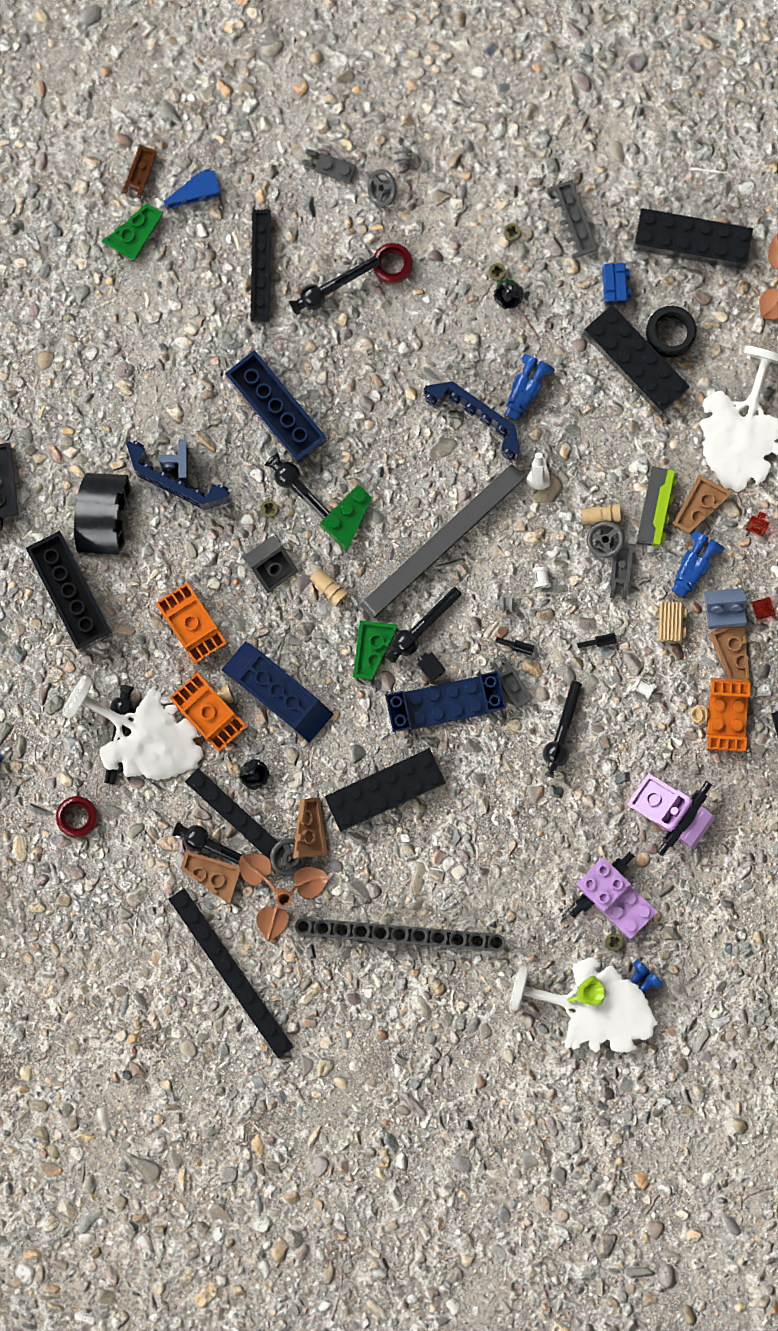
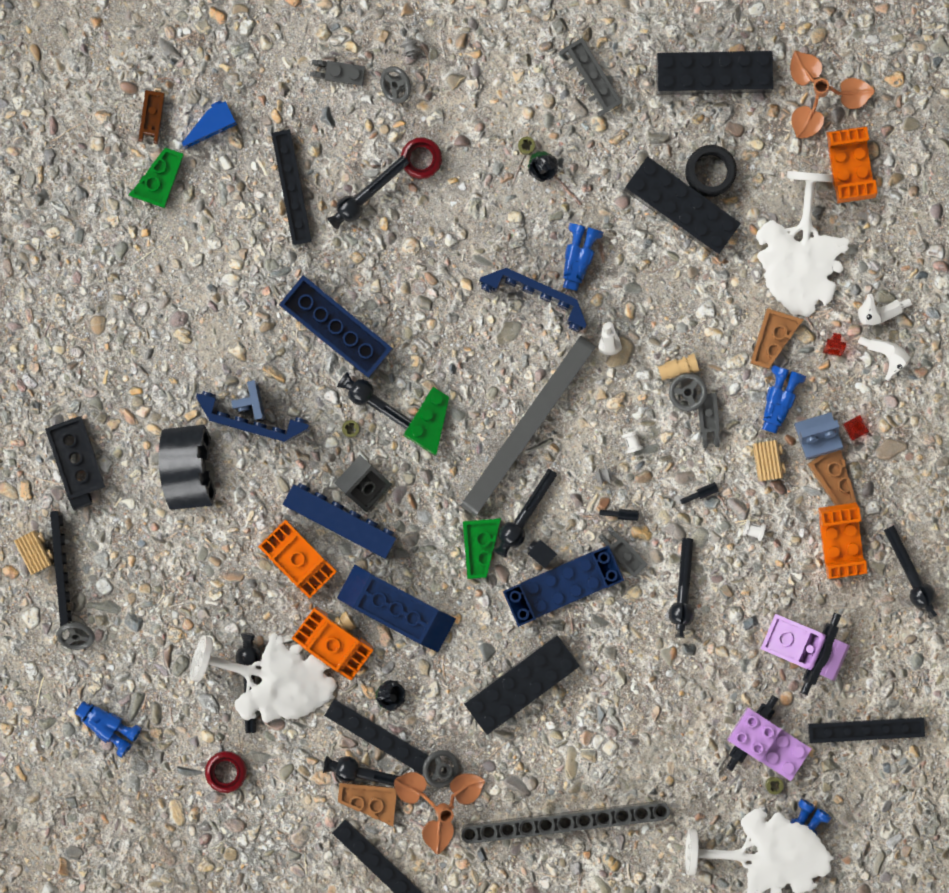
camera: 15 degrees left, 5 degrees up
(69, 591) = (171, 552): black brick -> none
(241, 595) = (340, 521): none -> dark blue brick
(310, 832) = (456, 738): medium nougat wing -> none
(327, 585) = (424, 494): tan axle -> none
(506, 233) = (528, 105): olive bush -> none
(590, 992) = (763, 844): lime piece -> none
(615, 283) = (646, 133): blue brick -> none
(655, 507) = (731, 349): piece -> none
(699, 714) = (814, 545): tan plate -> none
(715, 905) = (866, 730): none -> black plate

